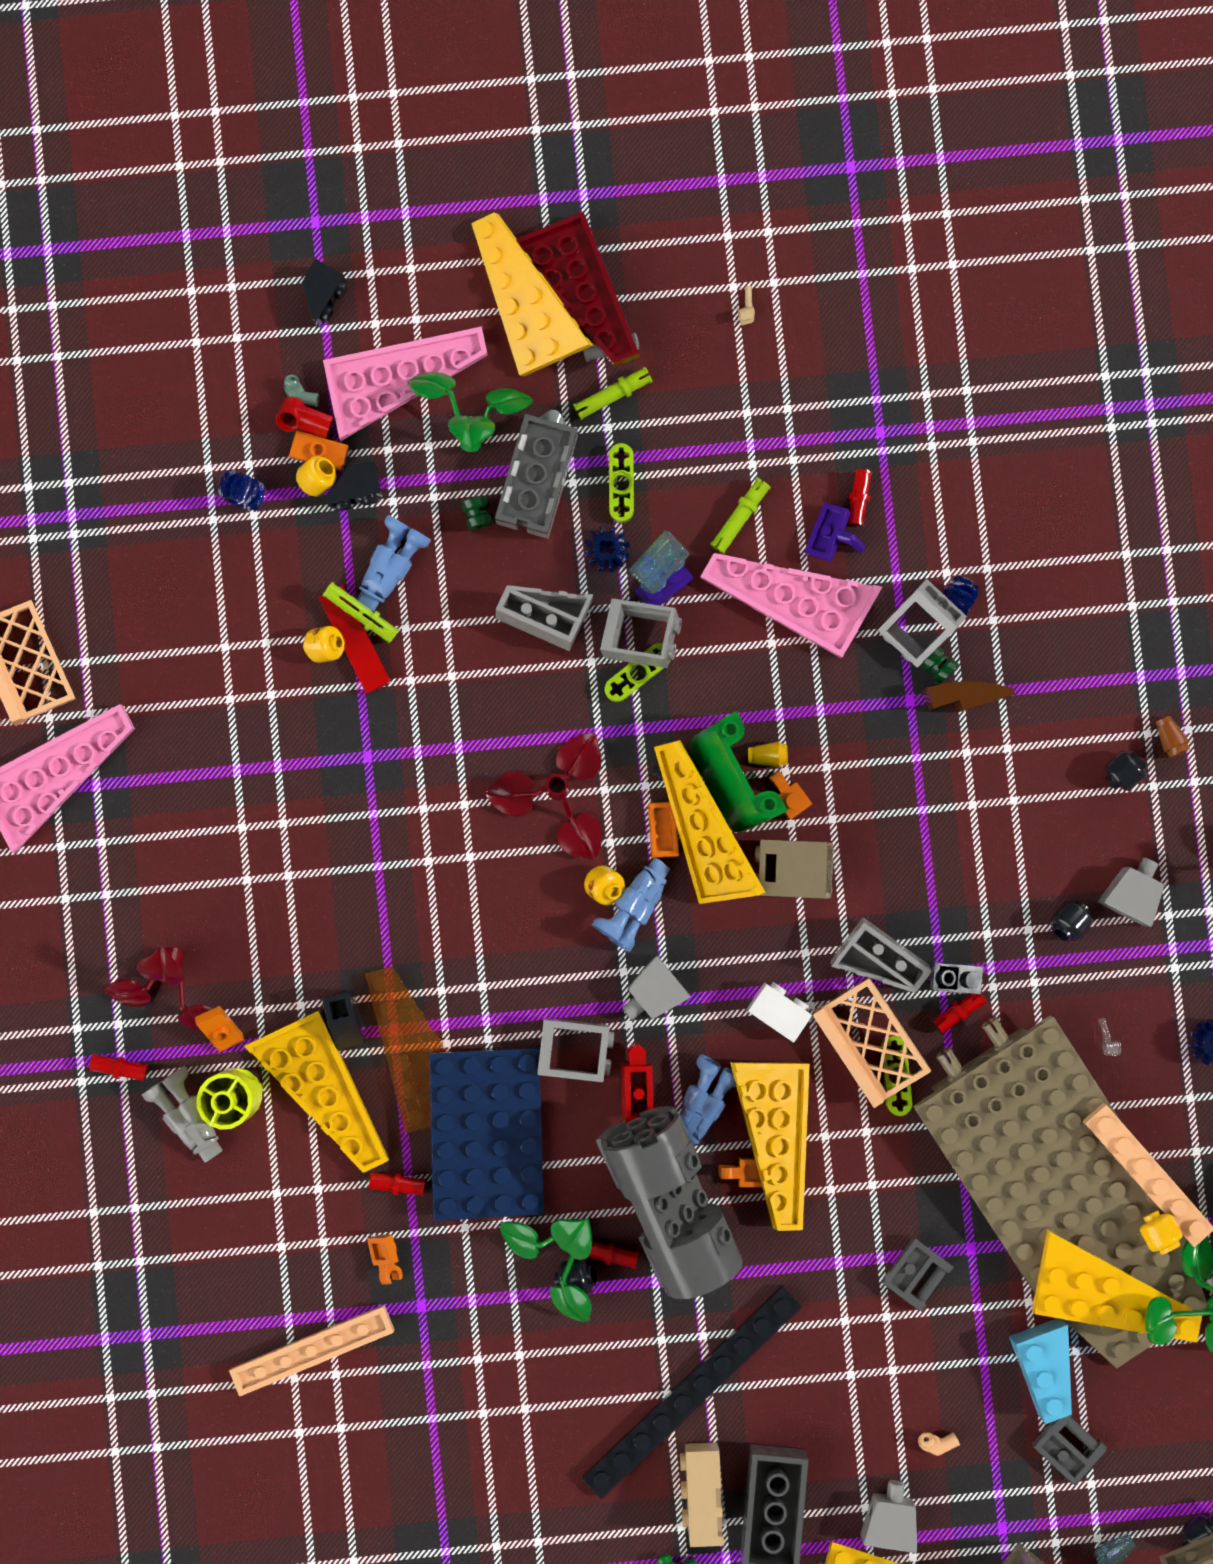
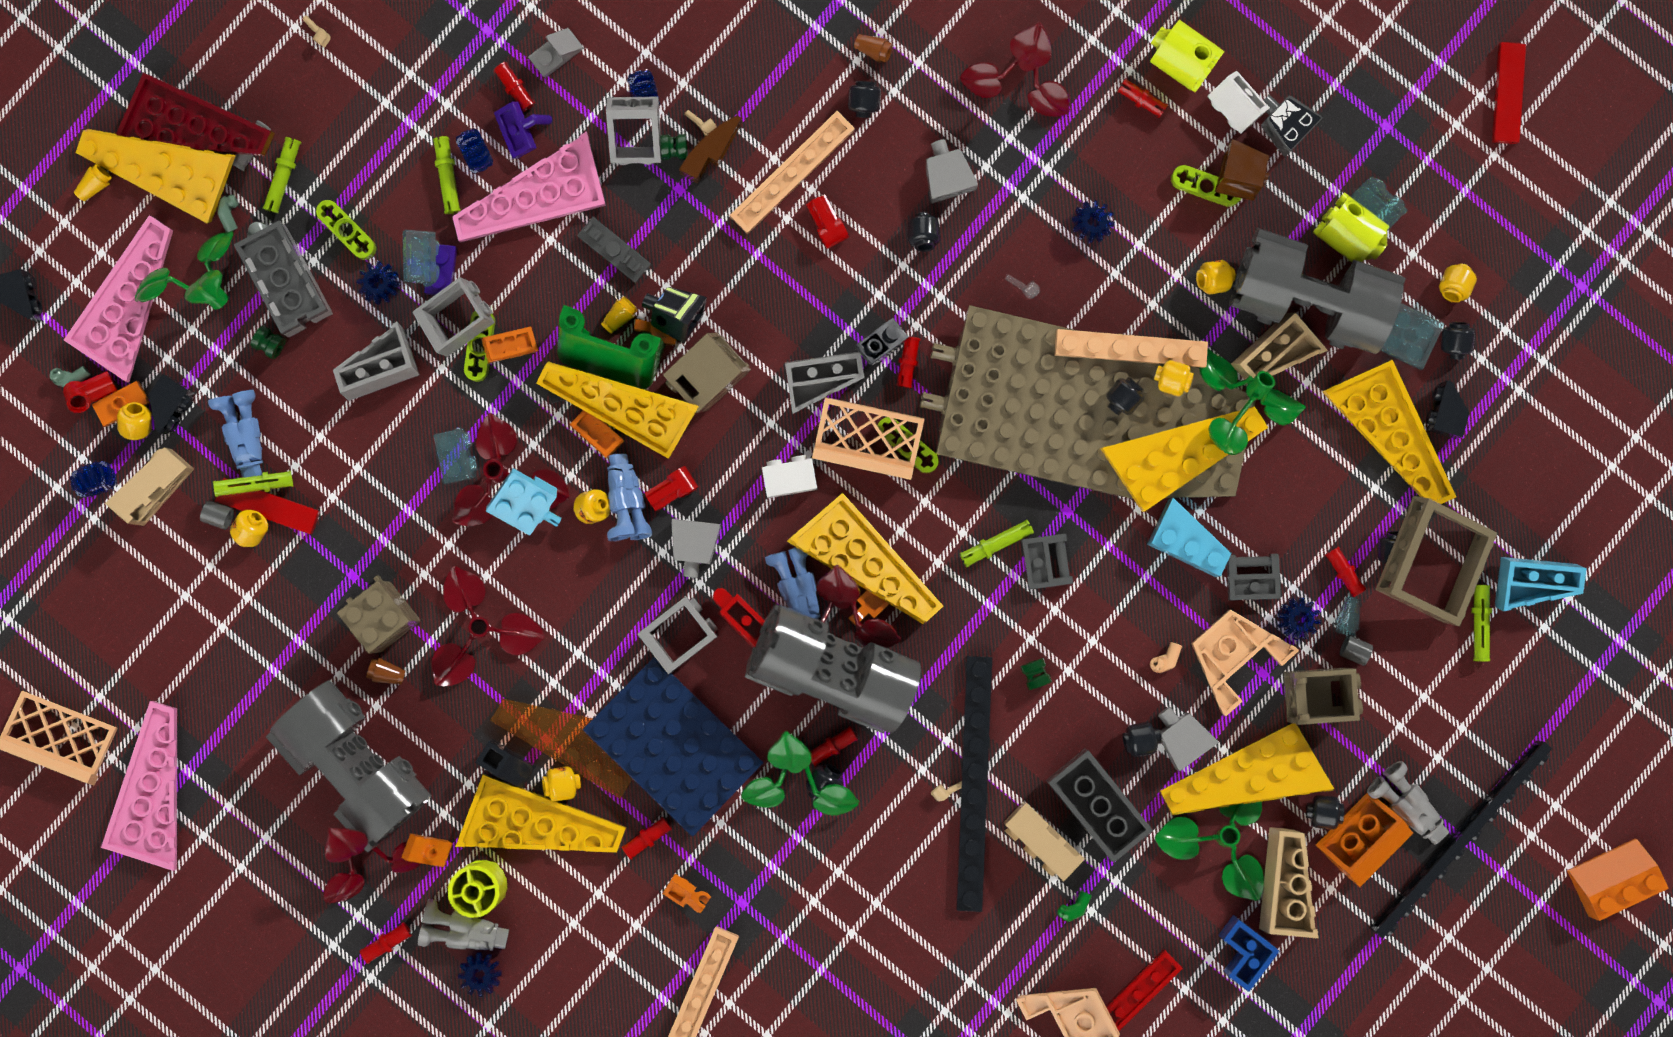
camera: 50 degrees left, 0 degrees up
(157, 1168) = (471, 969): none -> clear blue gear
(221, 951) = (322, 734): none -> dark grey cylinder
(279, 538) = (150, 487): none -> tan wedge
(309, 609) = (216, 514): none -> dark grey beam
(320, 856) = (385, 672): none -> dark orange cone
(357, 810) = (378, 616): none -> dark tan container
(371, 1077) = (560, 784): none -> yellow head
(449, 928) = (517, 635): none -> dark red plant
(461, 259) = (92, 182): none -> yellow cone
(535, 741) = (455, 456): none -> clear light blue bracket
(538, 384) = (224, 212): none -> sand green arm
(555, 831) = (524, 502): none -> medium azure plate
(658, 1375) = (942, 794): none -> tan hand
(661, 695) = (509, 344): none -> orange plate
(684, 931) = (677, 485): none -> red piece
(740, 1146) = (843, 592): none -> dark red plant
(780, 518) = (474, 150): none -> clear blue gear
(814, 699) = (614, 250): none -> dark grey plate
(815, 796) = (675, 312): none -> black torso
(823, 1354) = (1033, 668): none -> dark green wheel
(857, 1488) = (1141, 739): none -> black head
(892, 1221) = (996, 543): none -> lime pin
(917, 501) = (556, 52): none -> light grey slope
(978, 674) = (705, 127): none -> tan hand
(995, 1482) = (1228, 647): none -> light nougat wing
(1000, 846) = (829, 226): none -> red piece
(1012, 774) = (792, 172): none -> light nougat plate
(1073, 1526) = (1302, 627): none -> clear blue gear
(1107, 1209) = (1125, 396): none -> black head
(1146, 1514) = (1345, 572): none -> red pin

